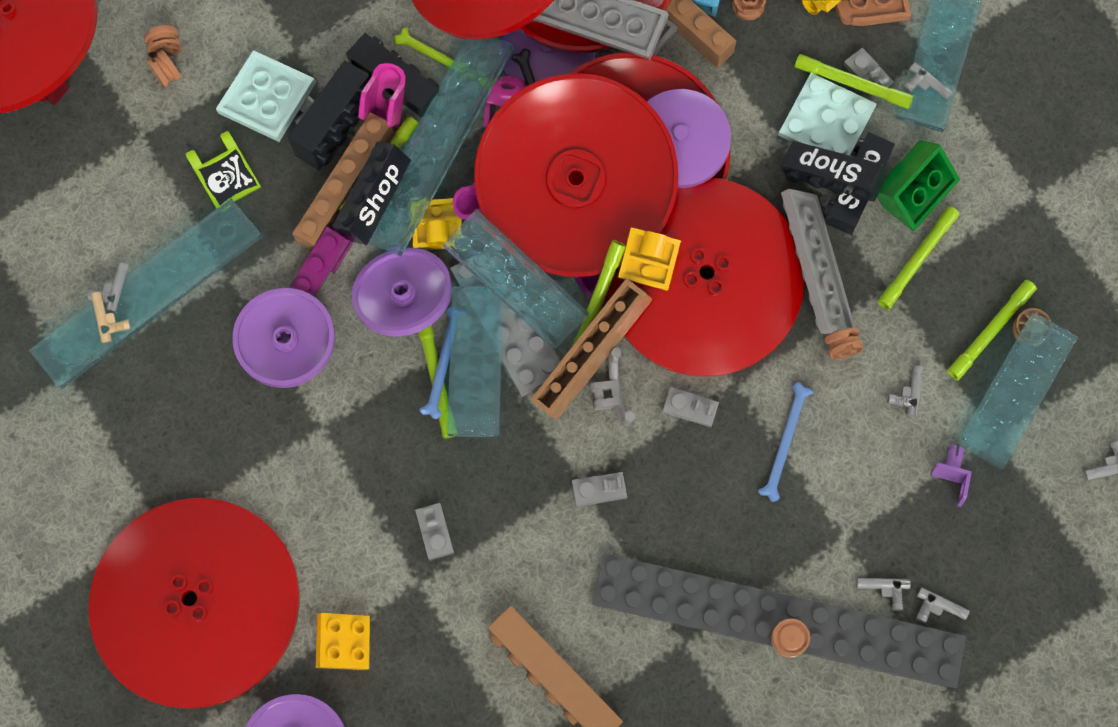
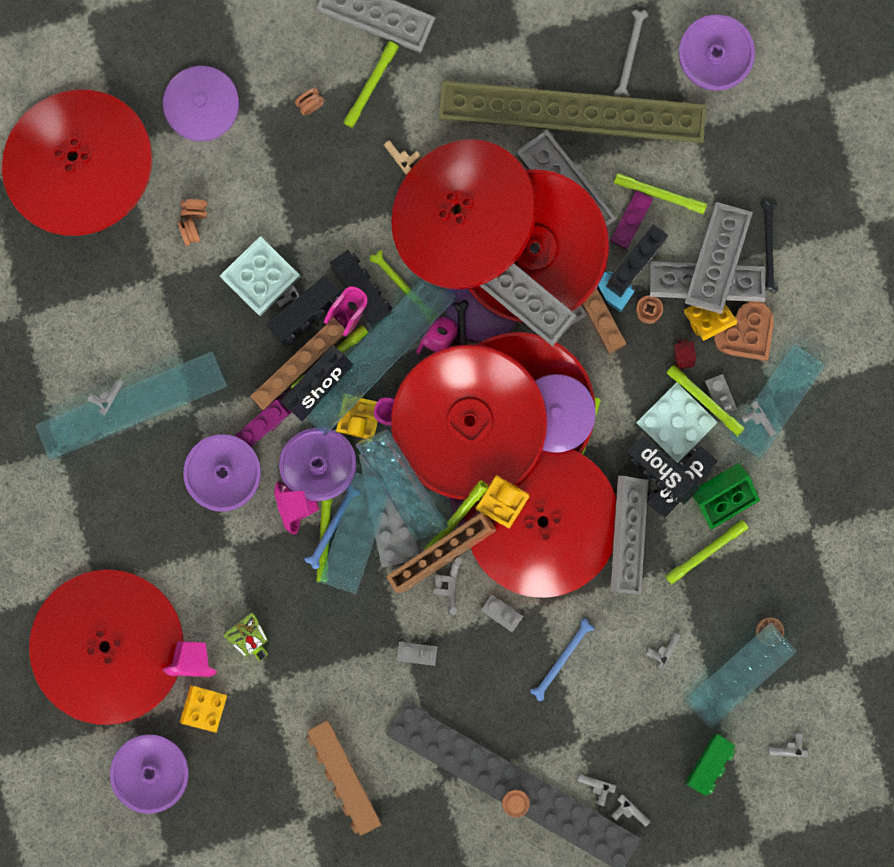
camera: 15 degrees right, 10 degrees up
(106, 319) = (97, 420): tan hose -> none
(226, 174) = (213, 330): flag -> none
(309, 583) = (190, 660): none -> dark pink piece
(375, 532) = (248, 637): none -> torso
(387, 351) = (293, 506): none -> dark pink piece
(434, 531) = (290, 648): light grey plate -> none
(809, 36) = (684, 354): none -> dark red brick
(844, 343) = (627, 602): nougat wheel -> none
(953, 472) = (674, 719): medium lavender bracket -> none
(966, 359) = (766, 607): lime piece -> none
(1020, 512) = (710, 765): none -> green slope

